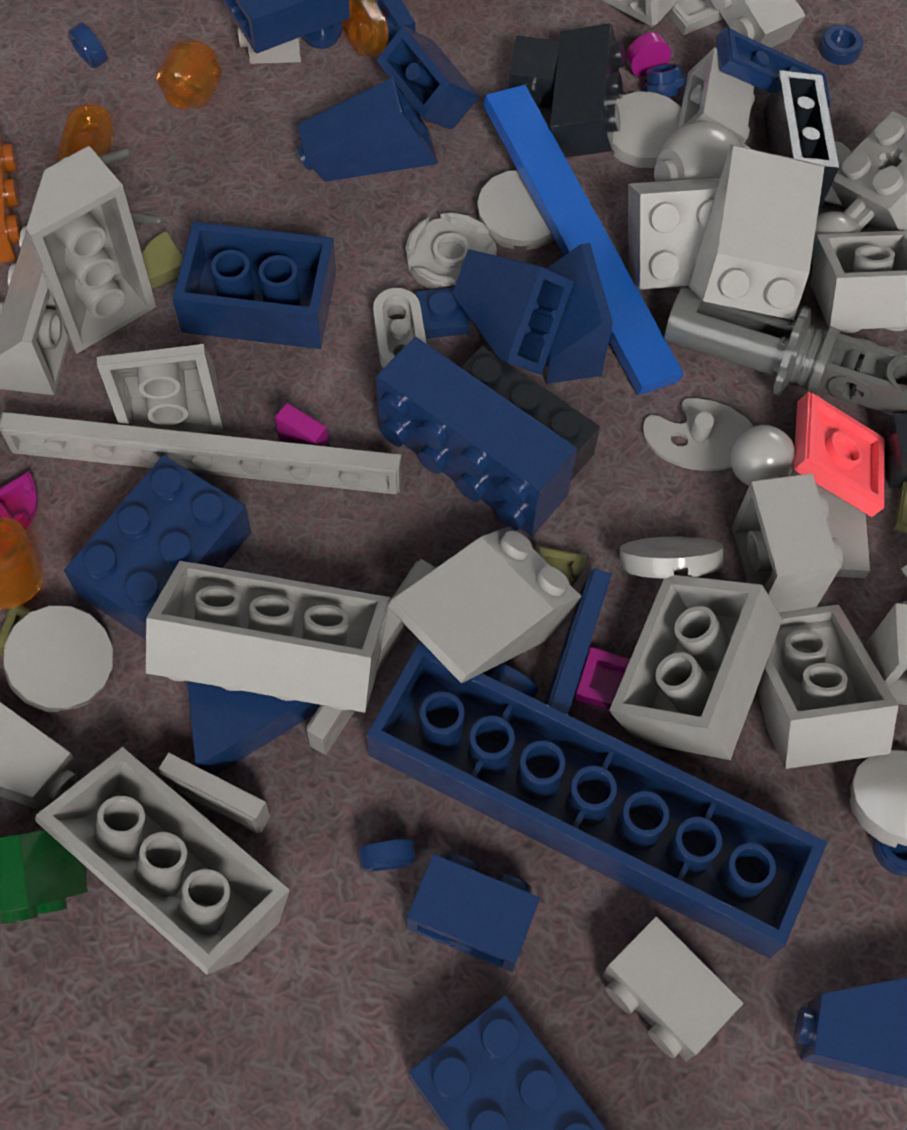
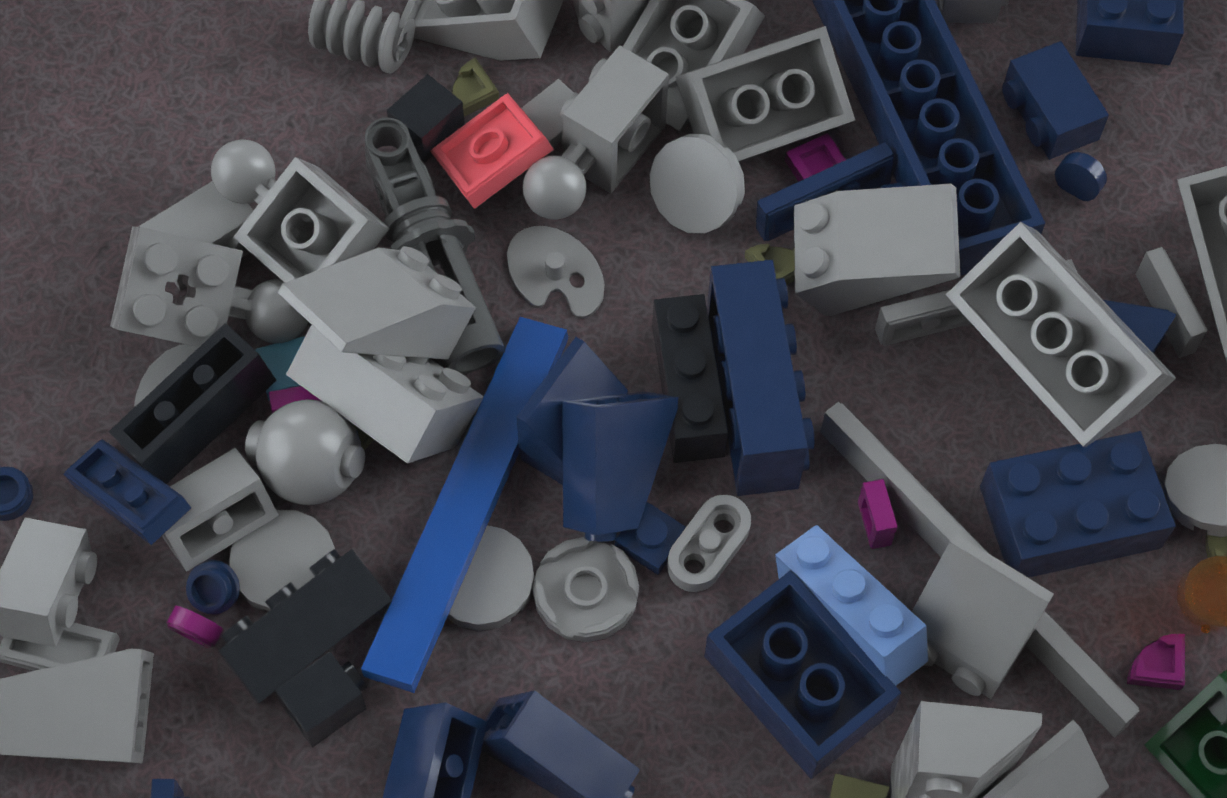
camera: 135 degrees left, 0 degrees up
(261, 339) = (859, 602): none -> medium blue brick

